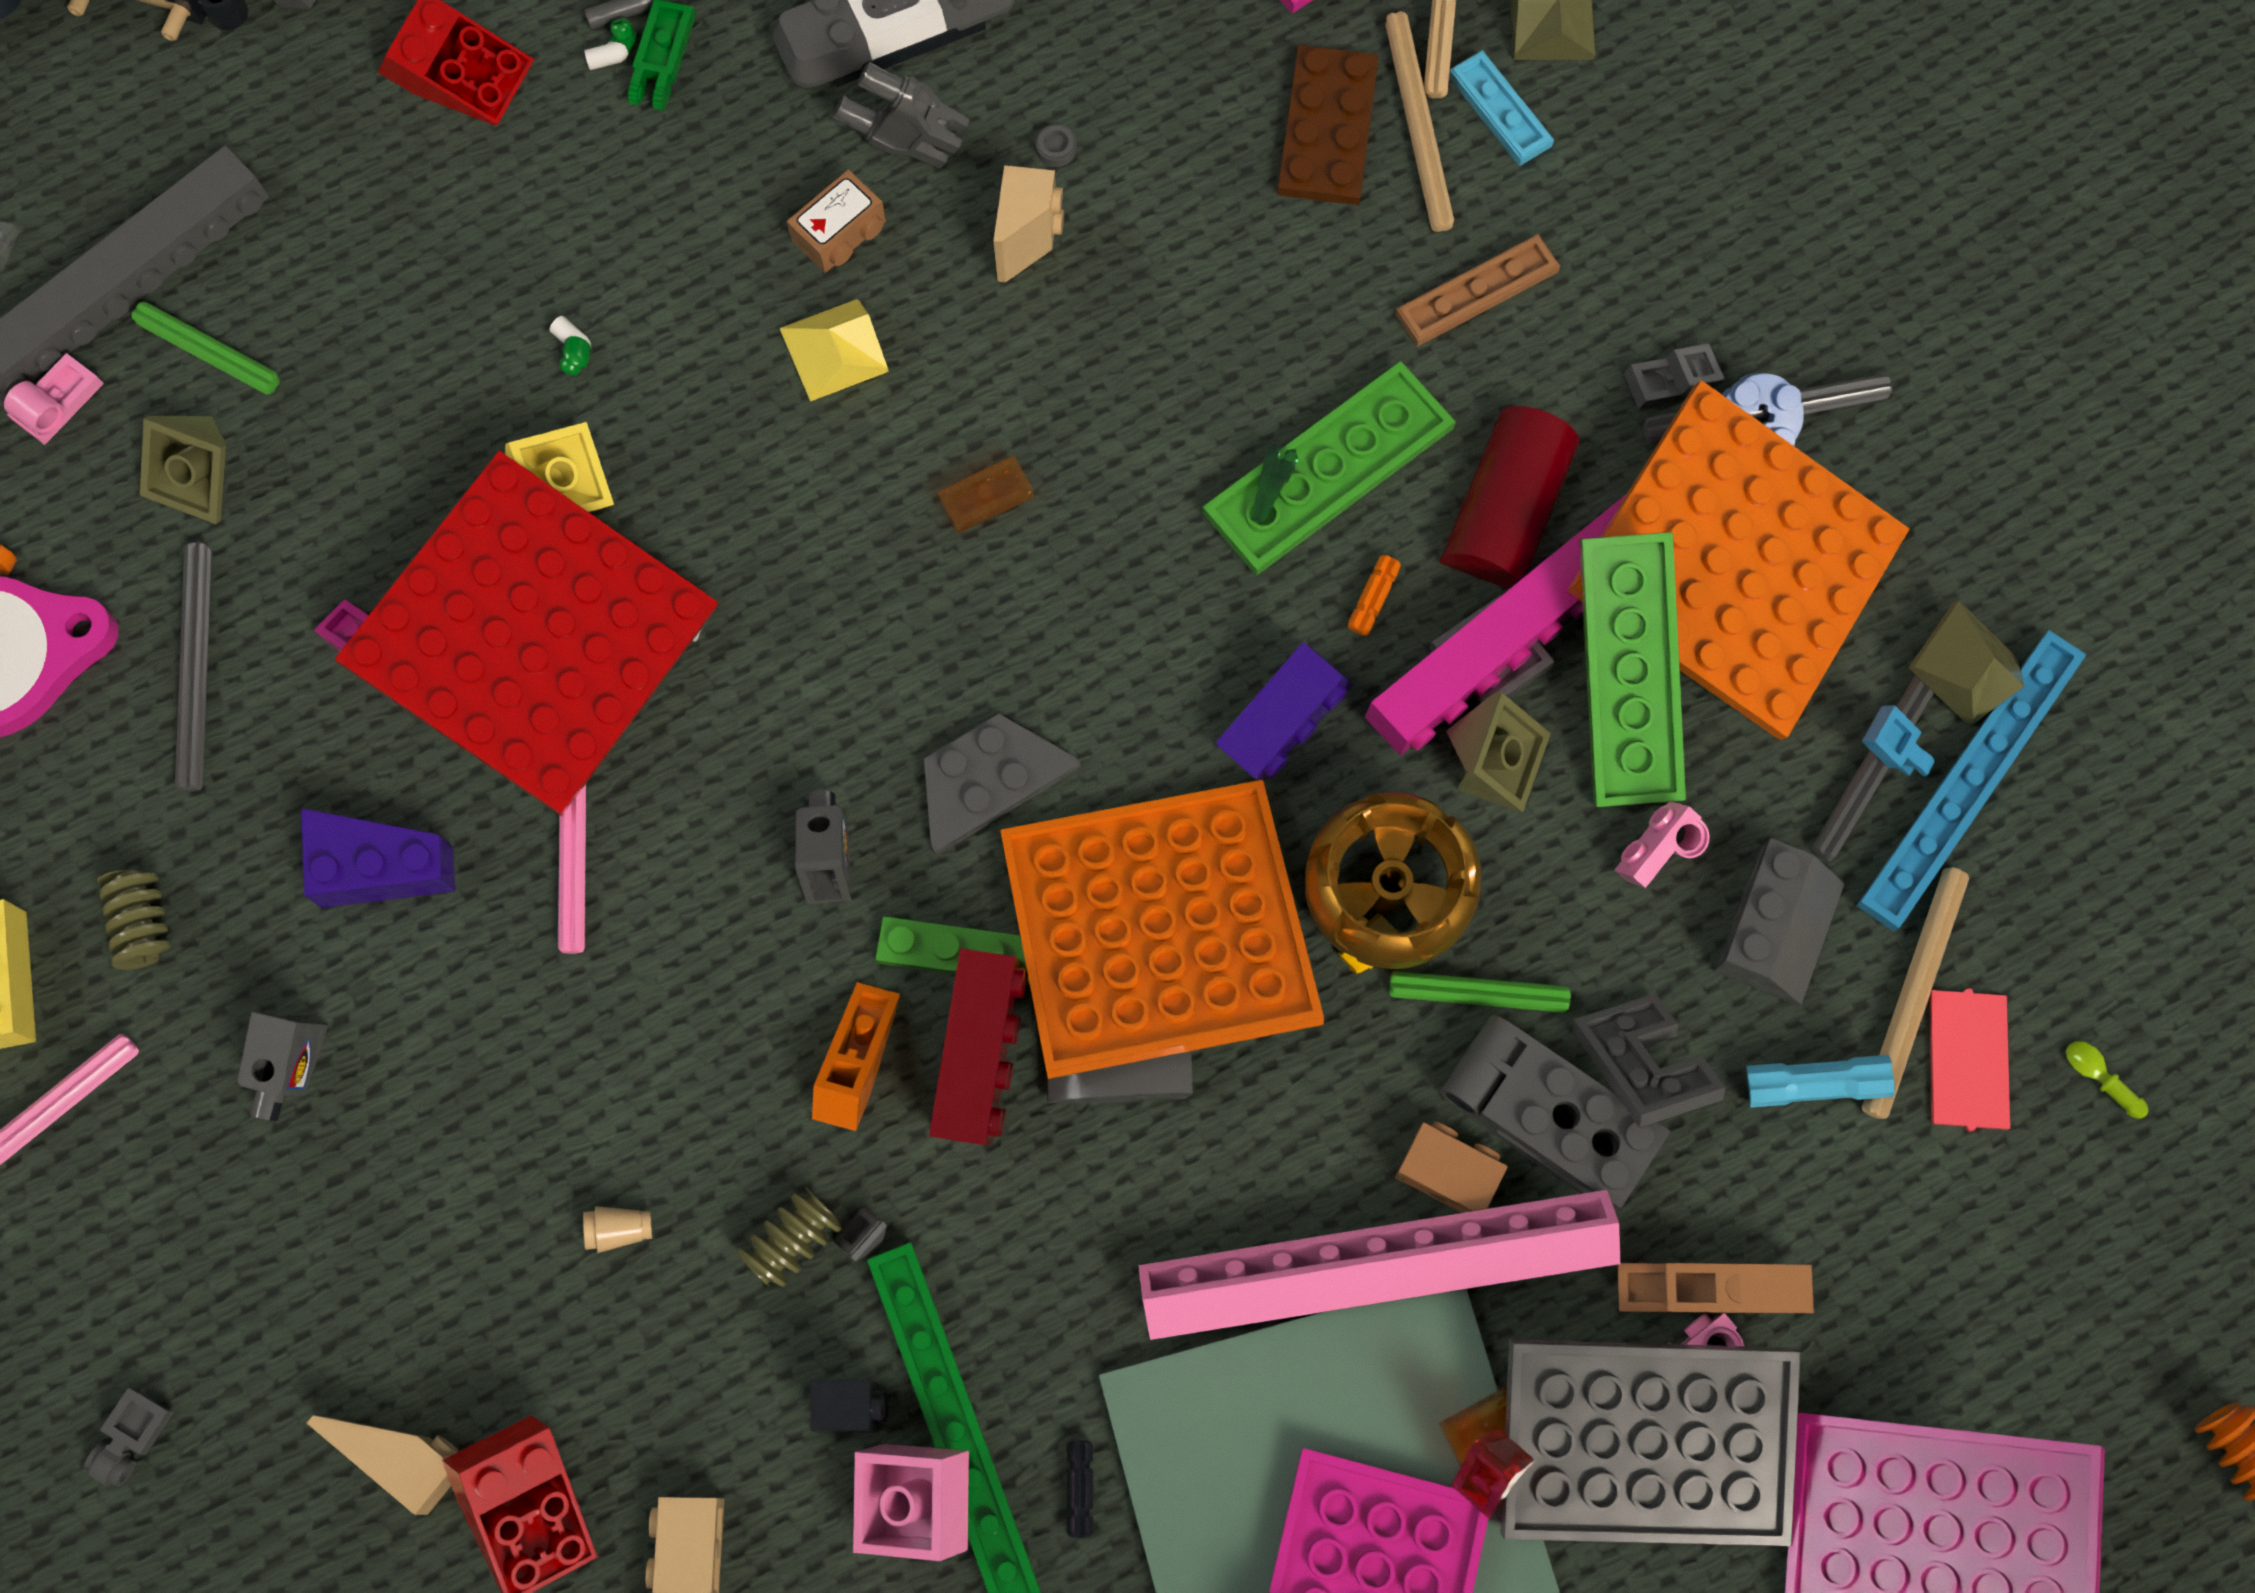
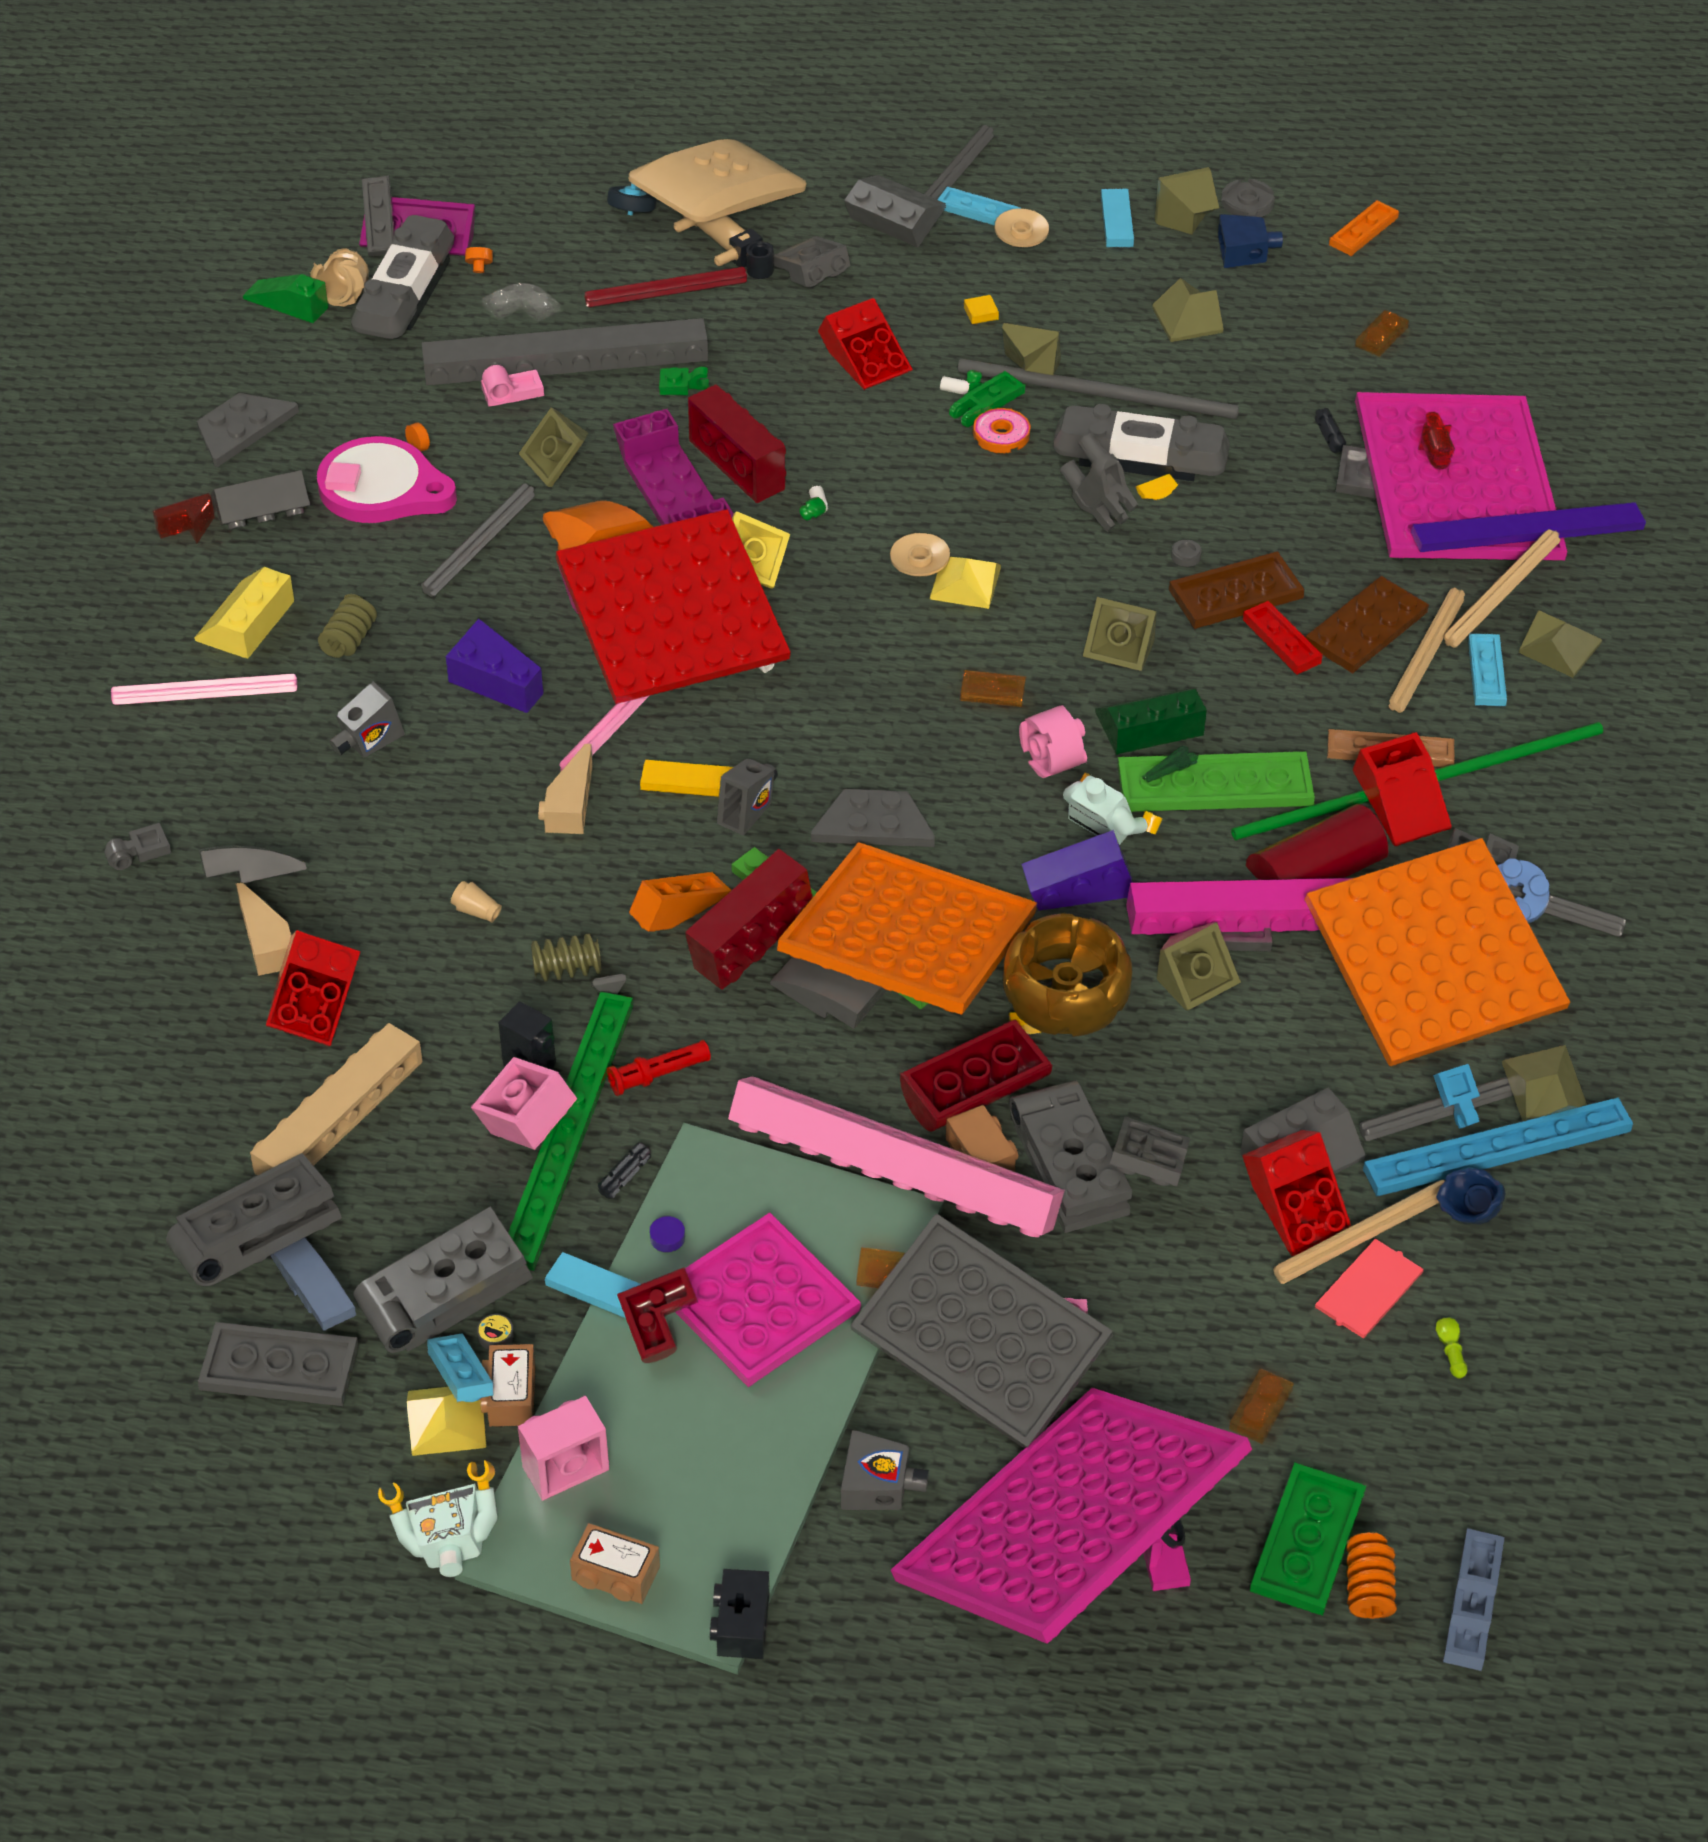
camera: 35 degrees right, 25 degrees down
(129, 114) = (665, 287): none -> dark red axle
(205, 348) = (606, 396): bright green axle -> none
(258, 257) = (679, 380): none -> green plate
(299, 1380) = (249, 862): none -> dark grey slope
(334, 564) = (592, 523): none -> orange wedge
(368, 422) = (662, 468): none -> magenta slope
(415, 319) = (737, 443): none -> dark red brick
(608, 994) = (568, 796): none -> tan slope
(706, 70) = (1001, 418): none -> tile
(728, 862) = (682, 777): none -> yellow tile
(753, 332) = (920, 554): none -> tan dish
(837, 221) = (1019, 520): brick -> none
(953, 66) = (1157, 488): none -> yellow piece
(999, 1334) = (644, 1071): none -> red pin
(1026, 219) = (1129, 567): tan slope -> none
(1077, 320) = (1120, 633): none -> olive slope
(1122, 537) = (1053, 741): none -> bright pink brick
(1154, 168) = (1235, 588): none -> reddish brown plate
(1194, 419) = (1153, 720): none -> dark green slope
(1203, 1553) = (667, 1234): none -> dark purple tile
(1243, 600) = (1105, 809): none -> light aqua torso
(1254, 206) = (1282, 637): none -> red plate
(1374, 595) = (1188, 857): orange axle -> none
(1381, 1085) = (973, 1075): none -> dark red brick
(1479, 991) = (1089, 1083): bright green axle -> none
(1491, 1470) = (868, 1264): clear red slope -> none
(1534, 323) = (1442, 774): none -> green piece
(1548, 351) = (1403, 788): none -> red slope
(1632, 669) = (1310, 956): bright green plate -> none
(1648, 855) = (1240, 1063): bright pink plate -> none
(1715, 1288) = (1107, 1295): medium nougat slope -> none
(1826, 992) = (1298, 1189): none -> red slope
(1856, 1078) = (1277, 1238): medium azure axle -> none
(1976, 1301) = (1261, 1406): none -> clear orange plate
(2008, 876) = (1471, 1196): none -> dark blue hair
(2149, 1445) = (1308, 1539): none -> green plate

